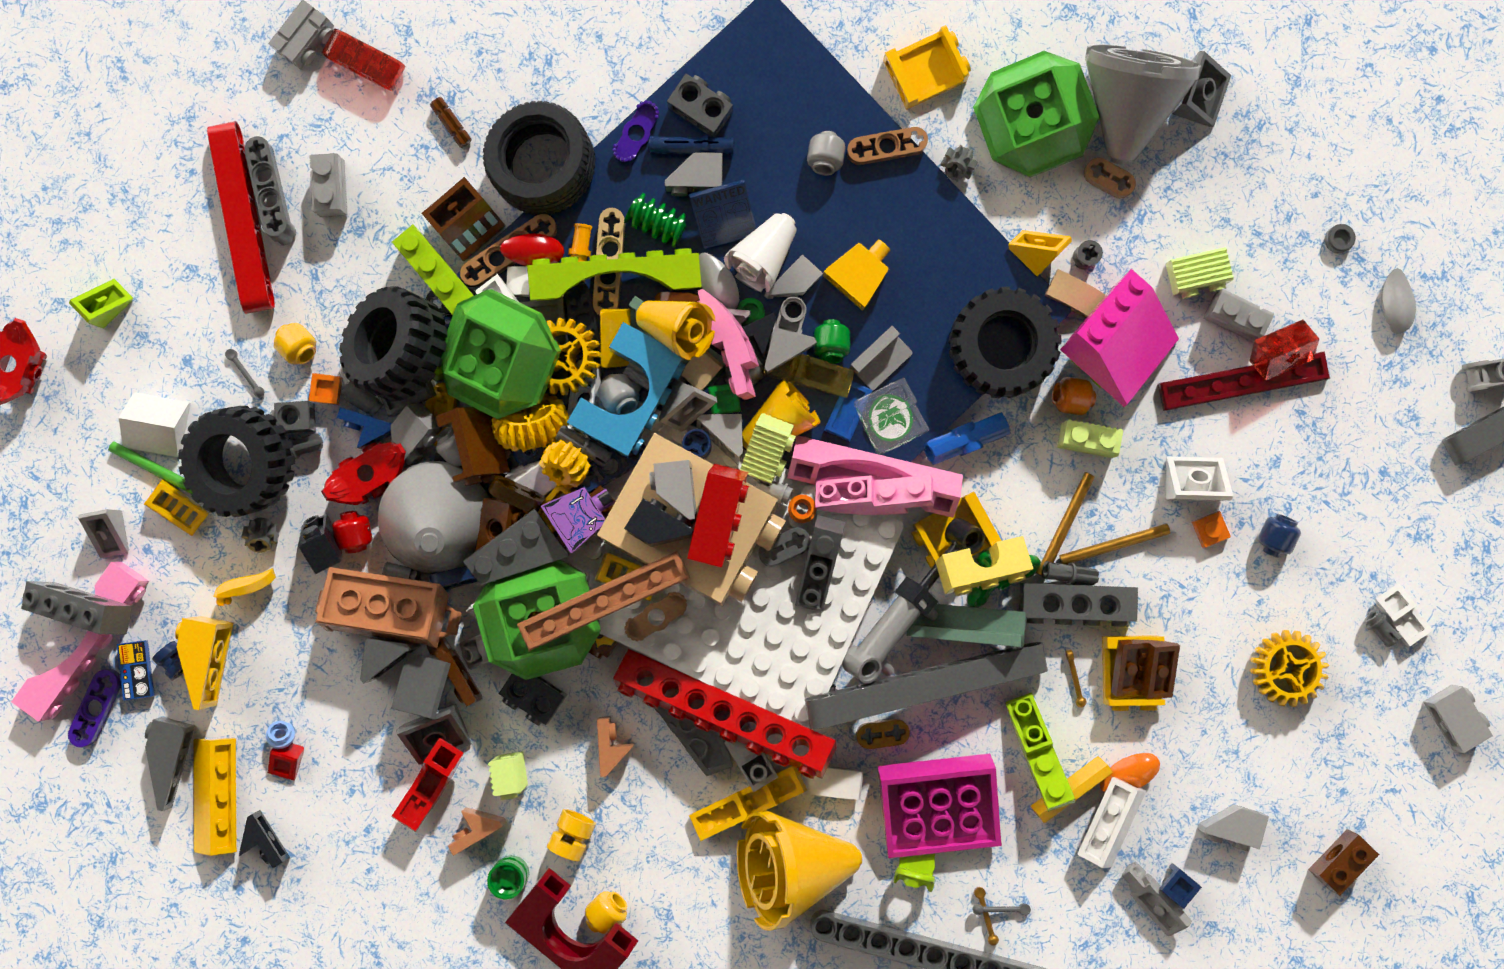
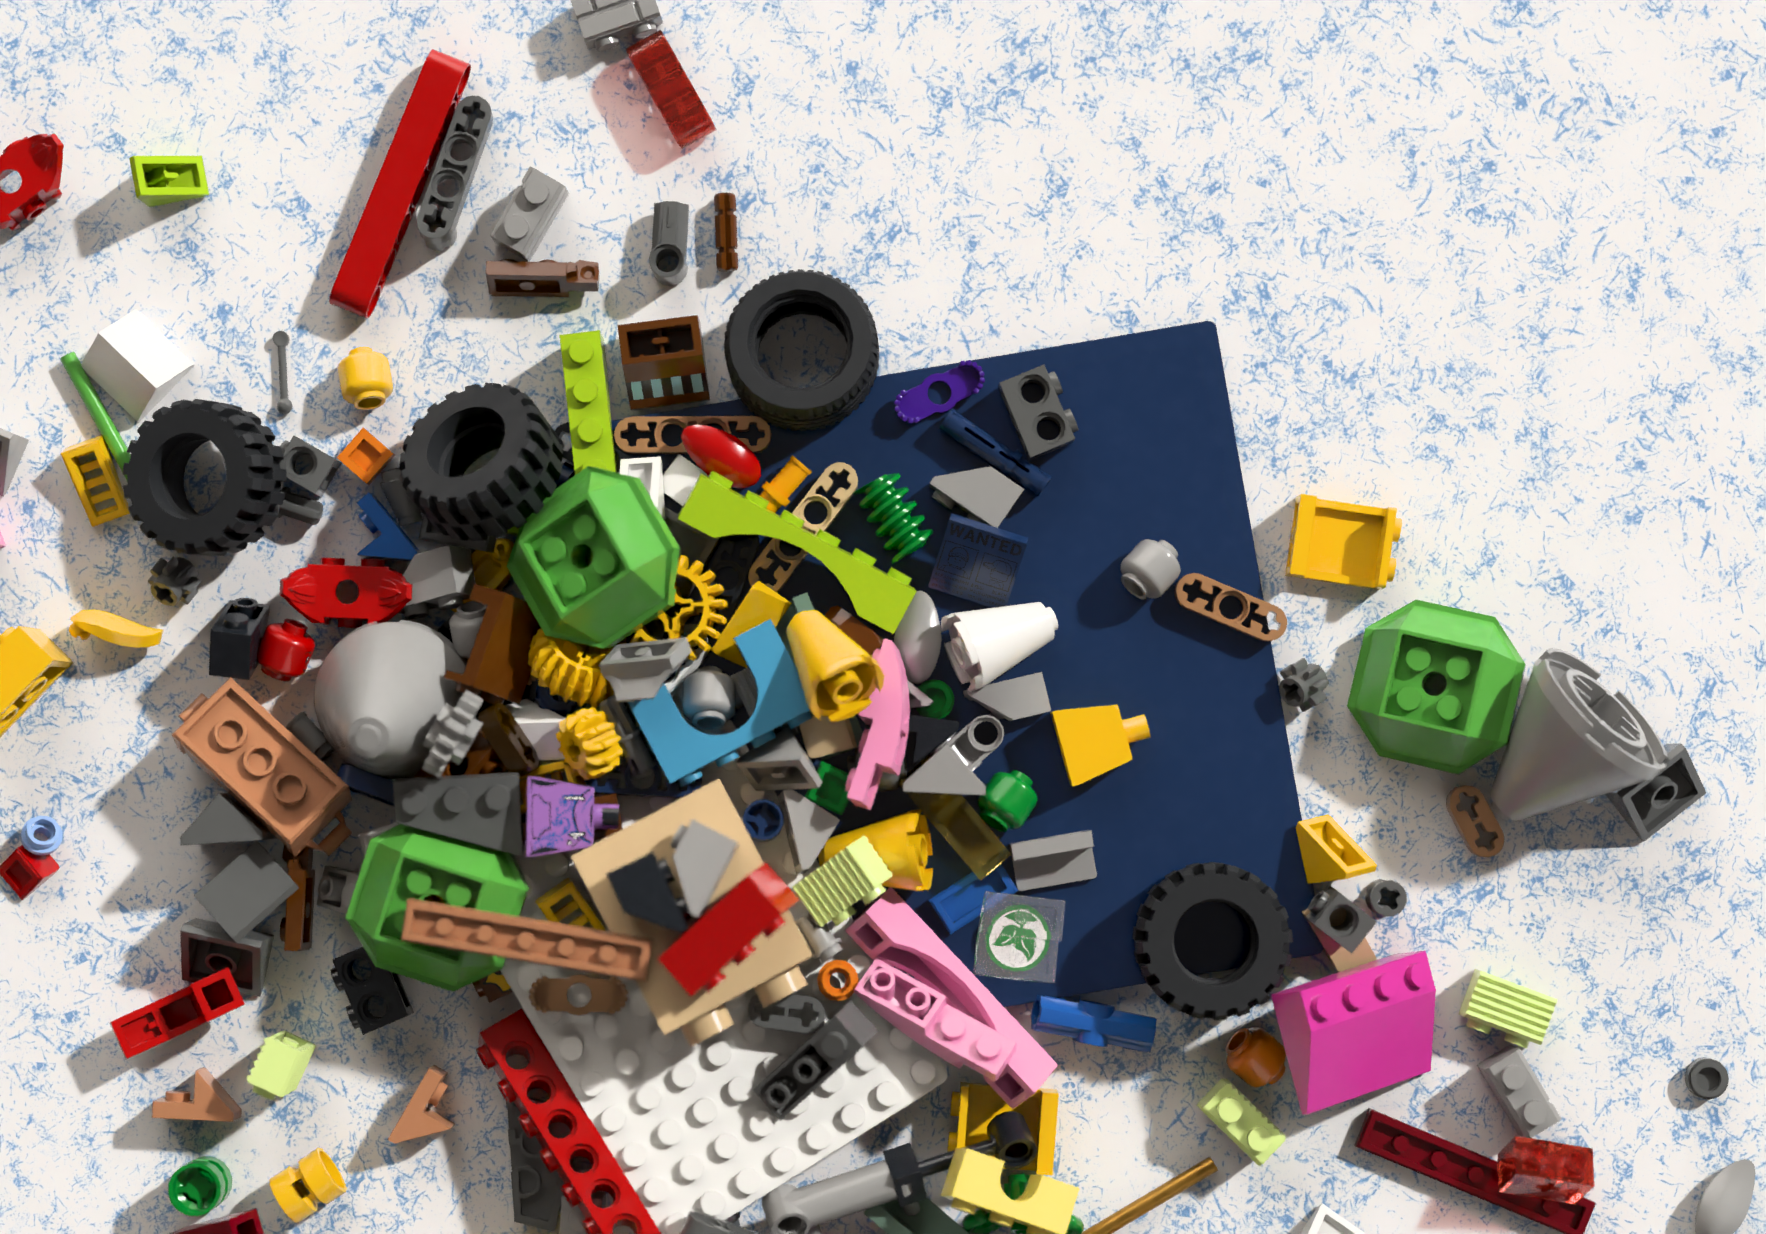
camera: 30 degrees right, 0 degrees up
(359, 218) = (541, 278): none -> reddish brown hinge
(421, 148) = (669, 239): none -> dark grey piece
(479, 509) = (452, 734): none -> light grey gear
(567, 398) = (642, 667): none -> light grey slope
(1081, 281) = (1354, 927): none -> dark grey brick

